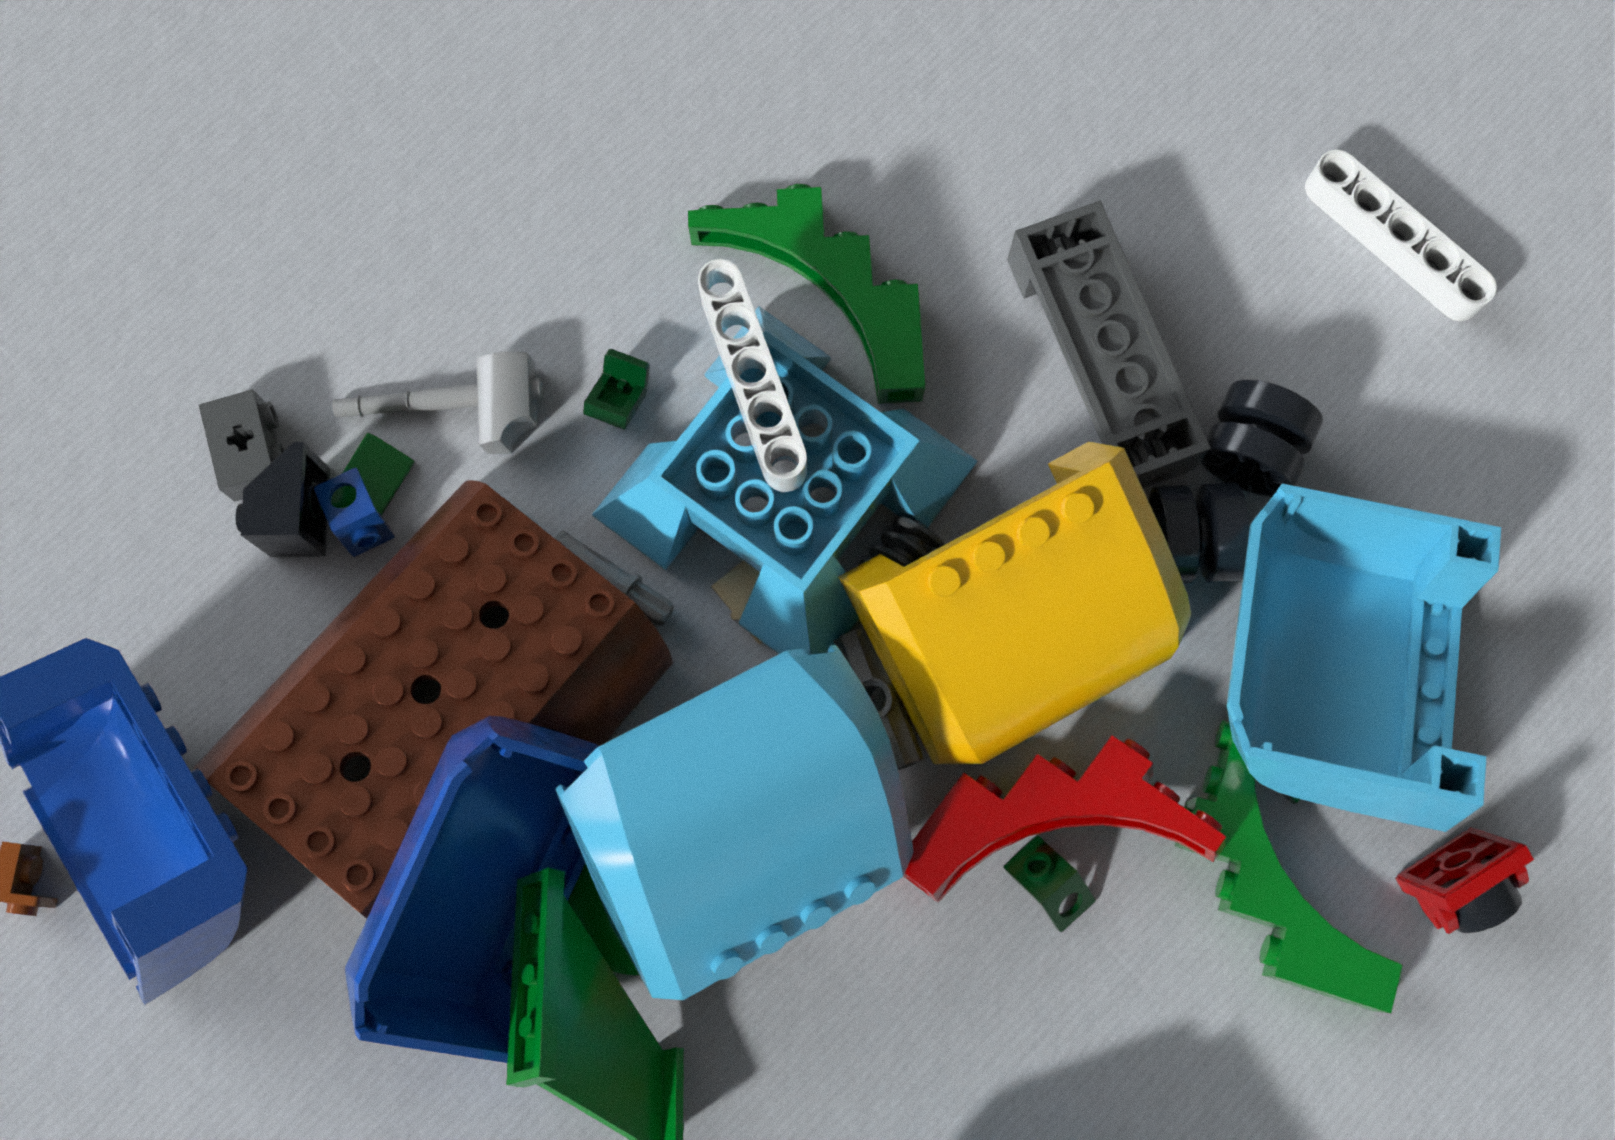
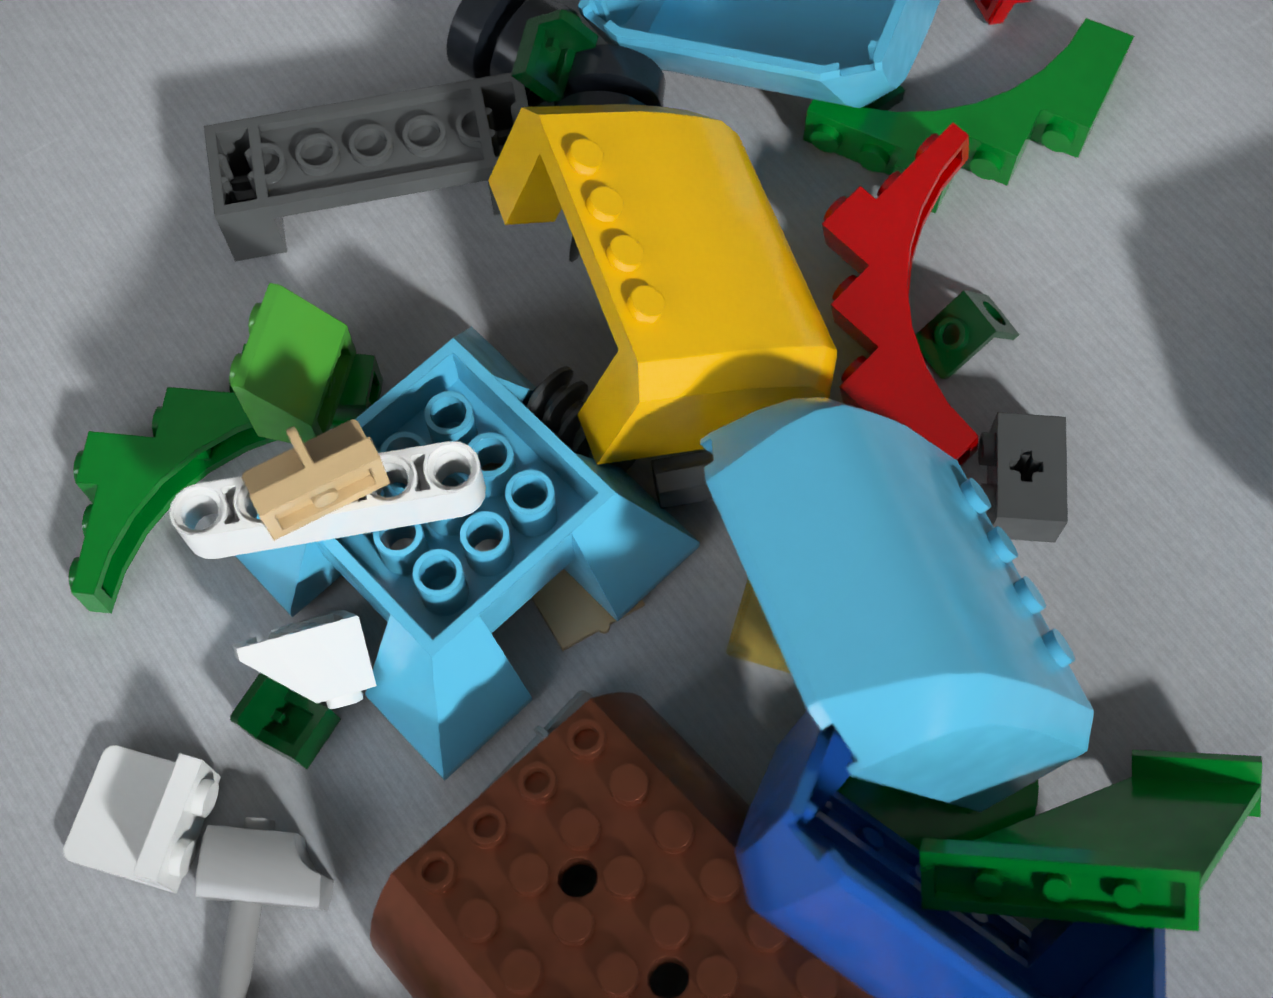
camera: 80 degrees left, 10 degrees down
(533, 308) = (143, 816): none -> white bracket
(658, 393) = (315, 657): none -> white slope
(754, 355) = (314, 478): none -> tan panel
(884, 323) = (291, 366): none -> bright green slope
(941, 955) = (1026, 475): none -> dark grey brick
(1226, 467) = (549, 52): none -> dark green bracket

